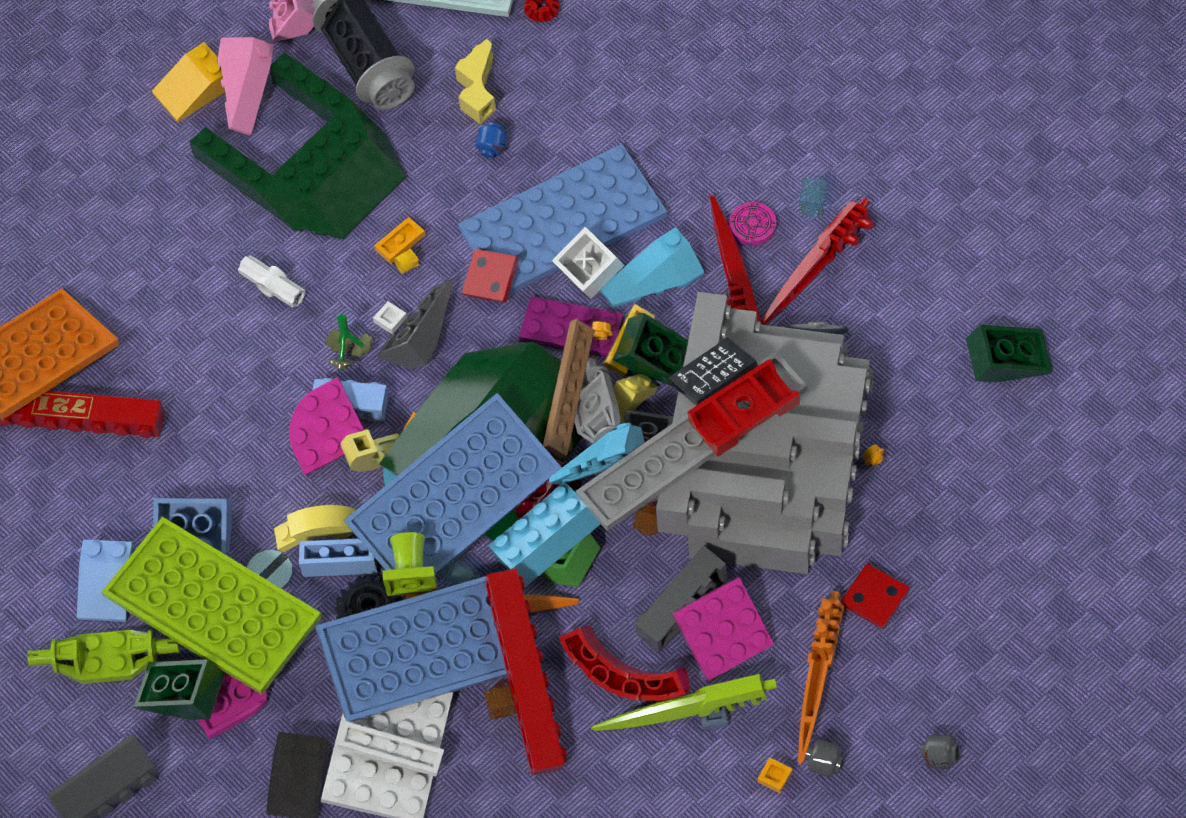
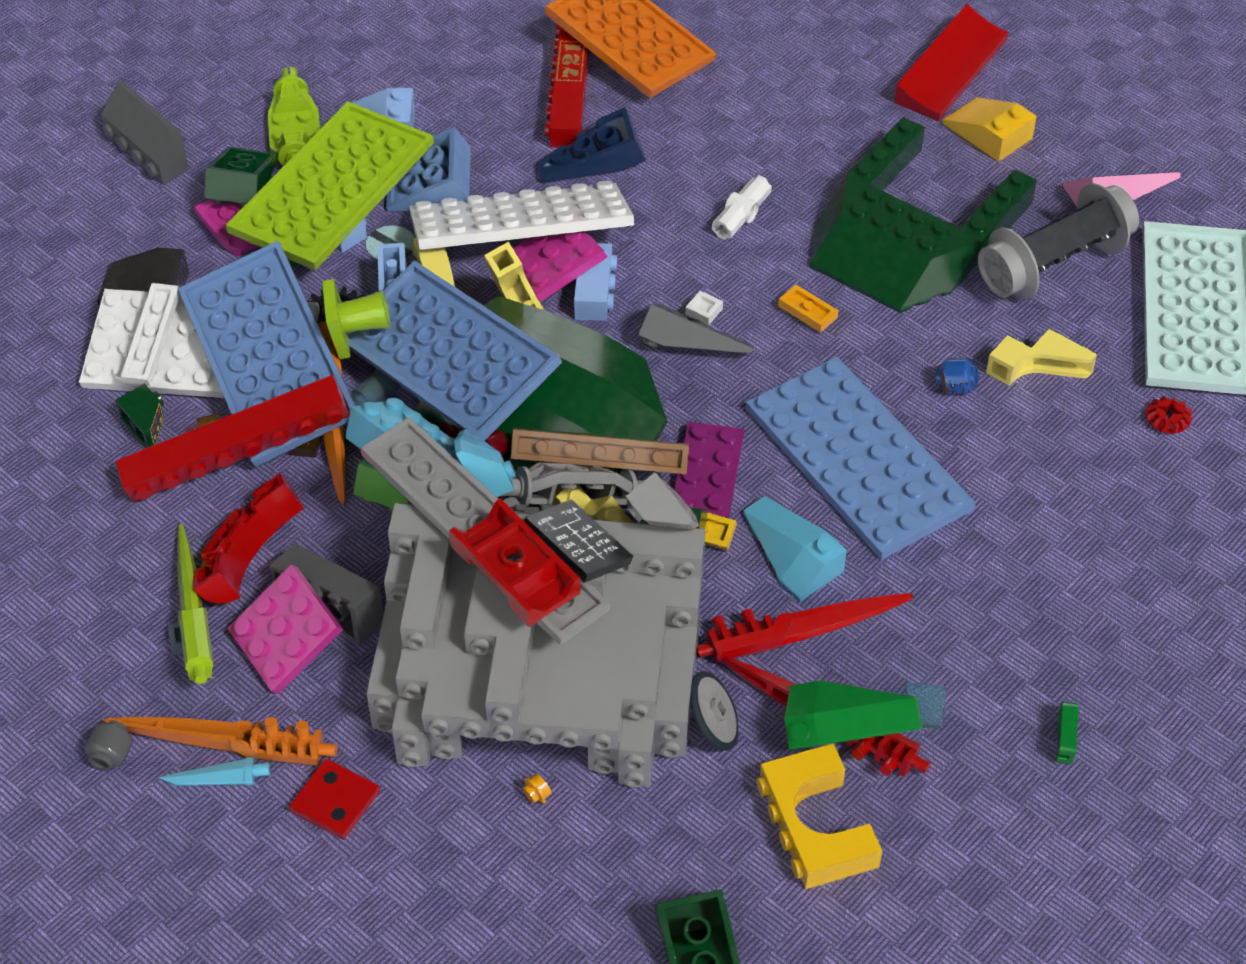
camera: 80 degrees right, 10 degrees down
(107, 105) = (950, 64): none -> red arch
(181, 391) = (602, 150): none -> dark blue wedge
(245, 72) = (992, 152): bright pink wedge -> none
(271, 451) = (519, 215): none -> white plate
(341, 341) = (670, 270): olive plant -> none
(406, 261) = (780, 316): yellow hose -> none
(471, 761) = (142, 413): none -> dark green slope
(490, 276) = (763, 385): tile -> none
(588, 263) = (787, 469): white brick -> none
(601, 330) = (693, 488): light orange plate -> none
(678, 316) = (660, 505): none -> light grey wedge
(753, 223) = (878, 646): dark pink tile -> none
(775, 775) = (95, 698): light orange plate -> none
(833, 244) = (837, 713): none -> green wedge
(838, 111) = (1067, 732): none -> green piece
(848, 675) = (230, 773): none -> medium azure bar
(882, 292) = (815, 855): none -> yellow arch
(941, 751) = (105, 872): dark grey head -> none

